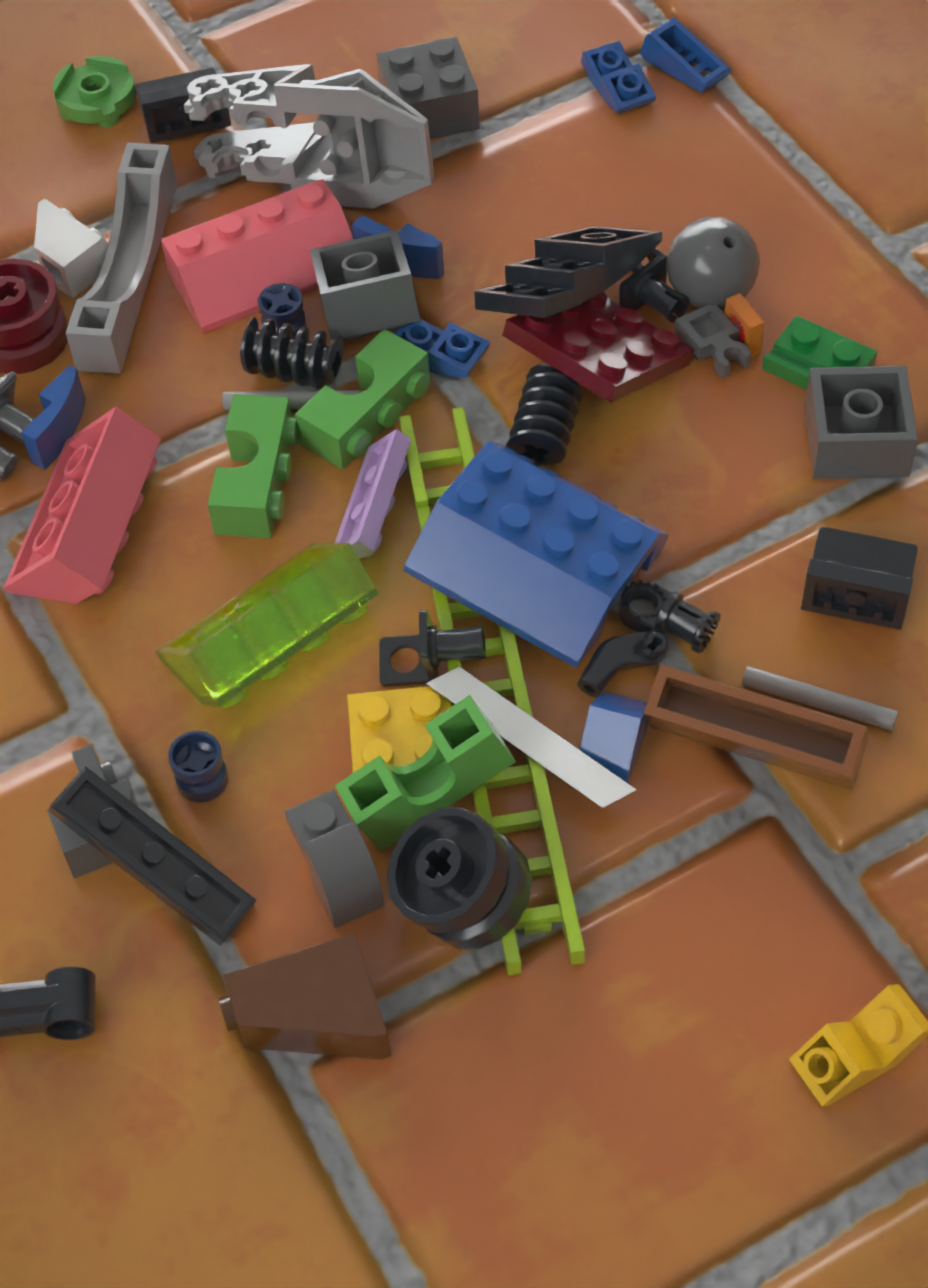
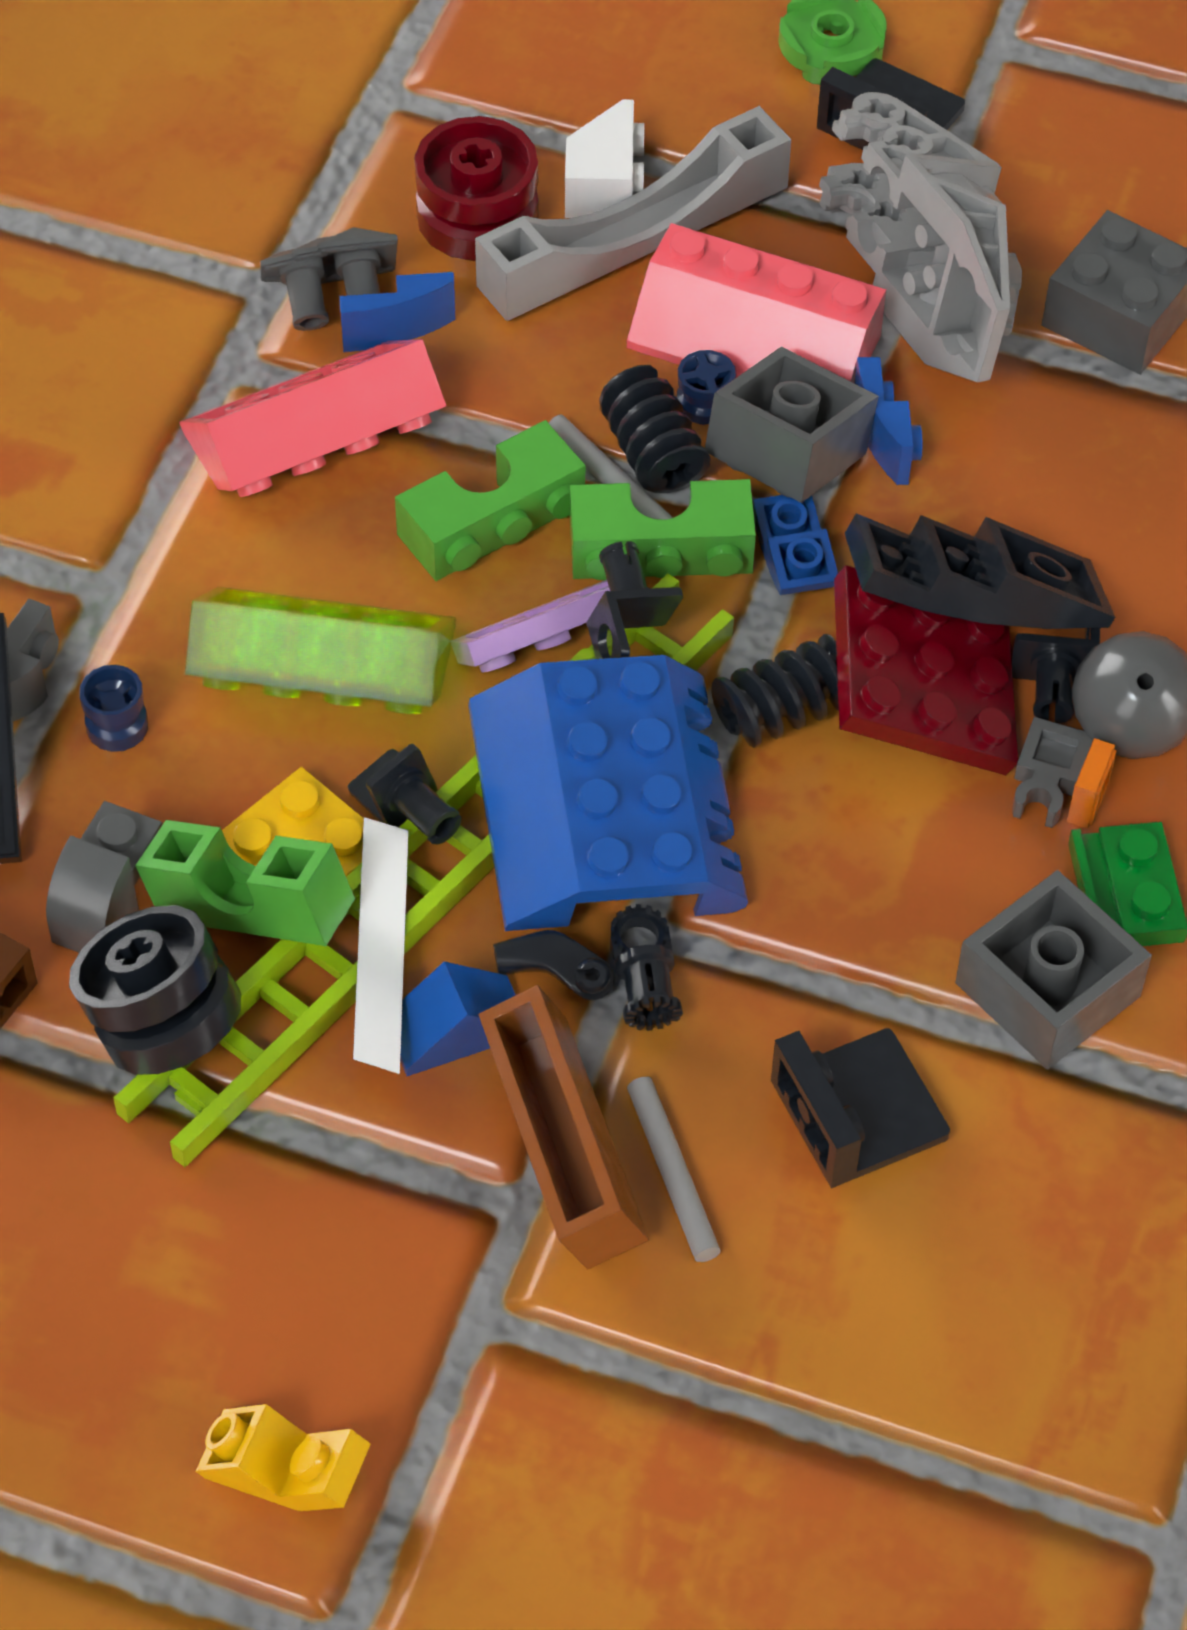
camera: 45 degrees right, 0 degrees up
(421, 444) = (628, 601): none -> black bracket

